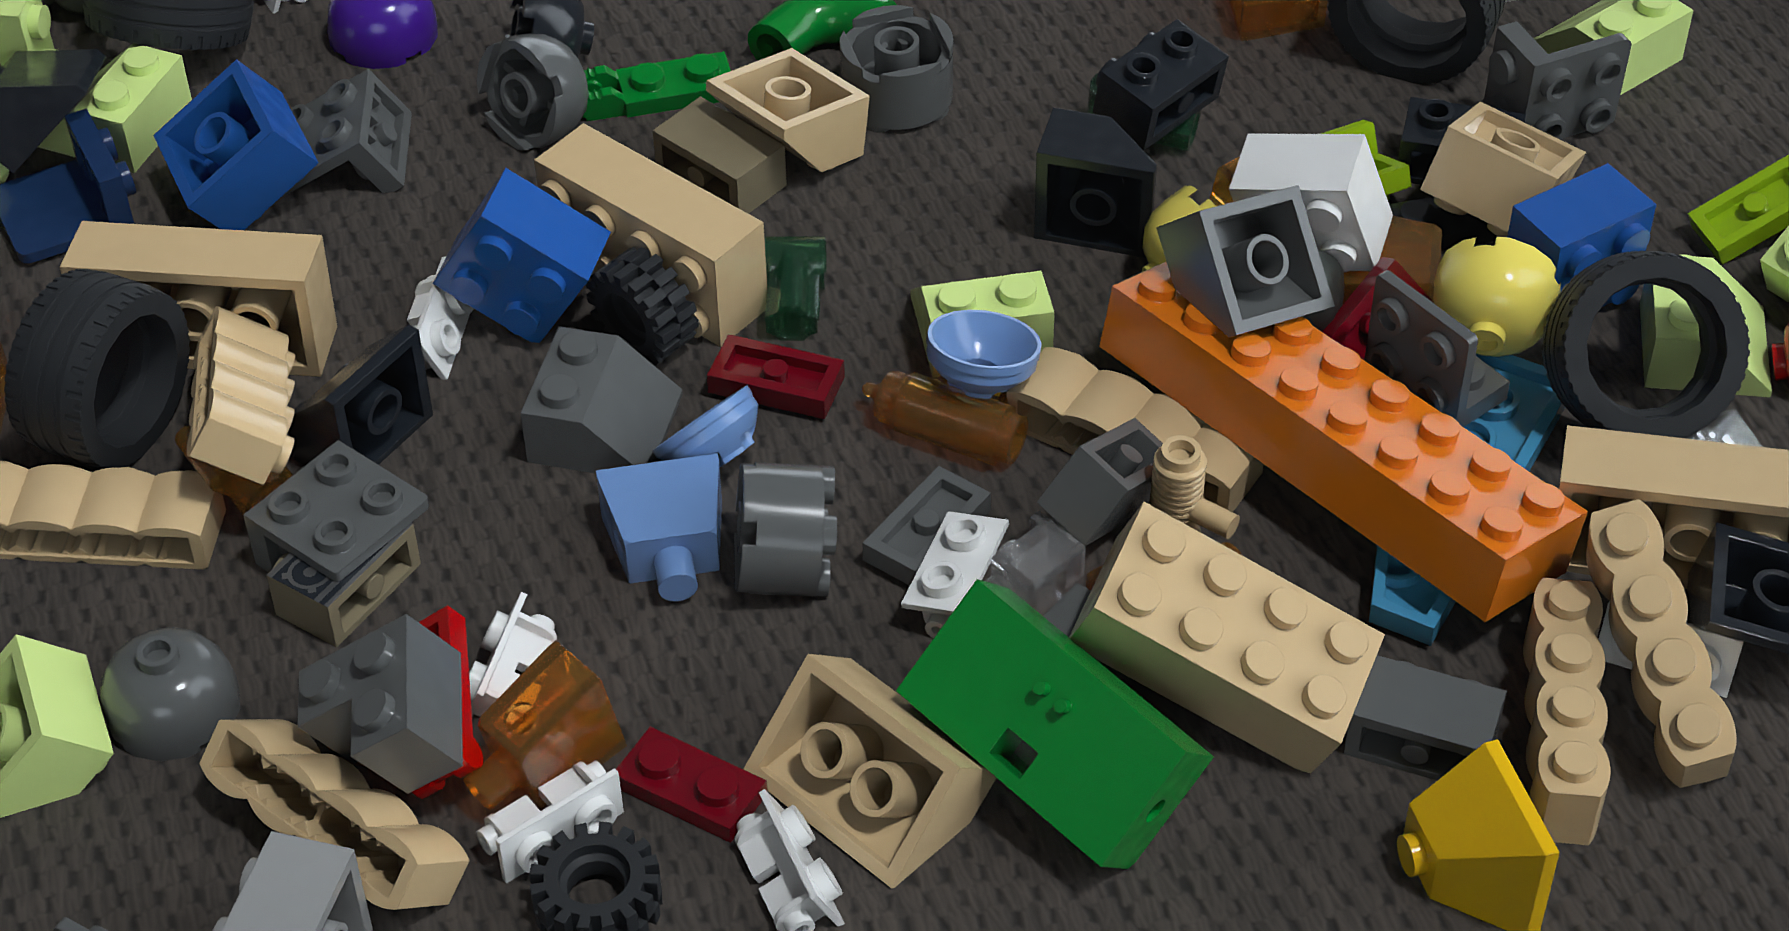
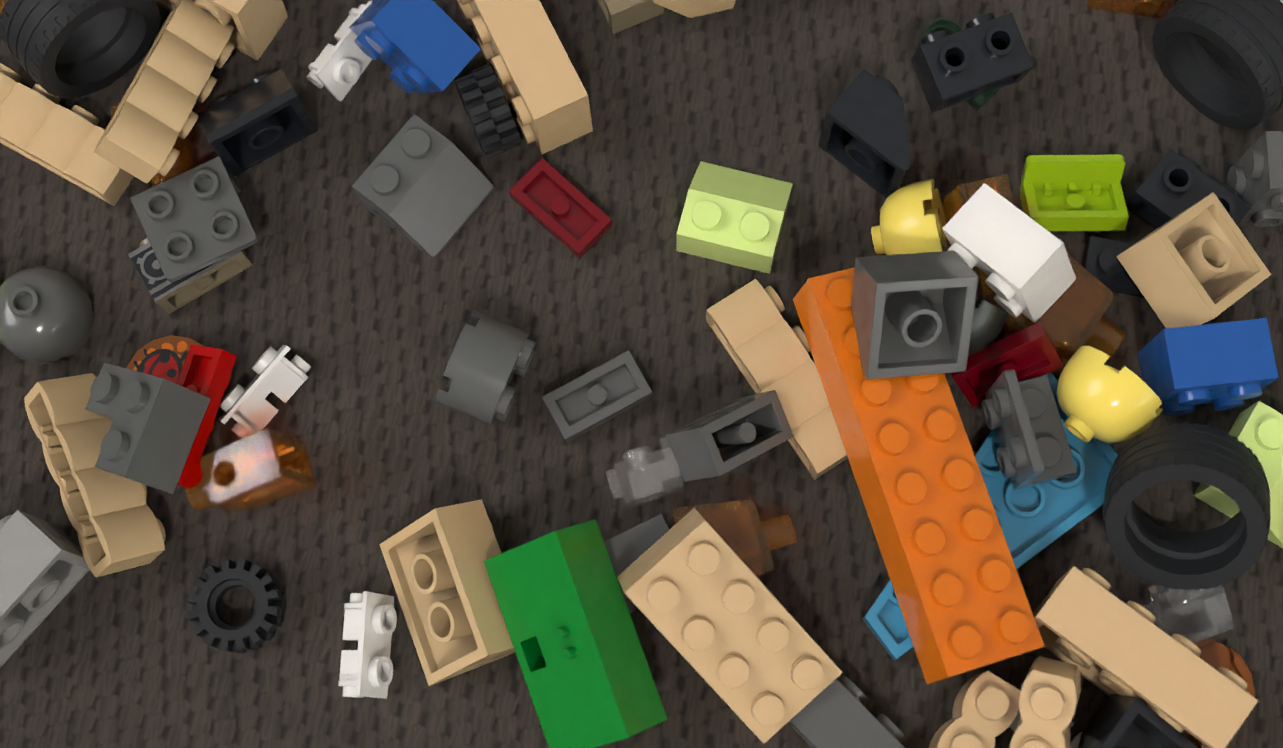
camera: 30 degrees right, 30 degrees up
(572, 798) = (213, 540): white hinge -> none
(664, 520) = (419, 314): medium blue torso -> none
(690, 783) = (338, 542): dark red plate -> none
(721, 430) = (483, 250): medium blue piece -> none
(794, 284) = (617, 118): clear green piece -> none
(948, 417) = (663, 305): clear orange piece -> none
(952, 565) = (592, 449): white hinge -> none
(982, 351) = (706, 260): medium blue piece -> none
(1179, 487) = (768, 481): tan piece -> none

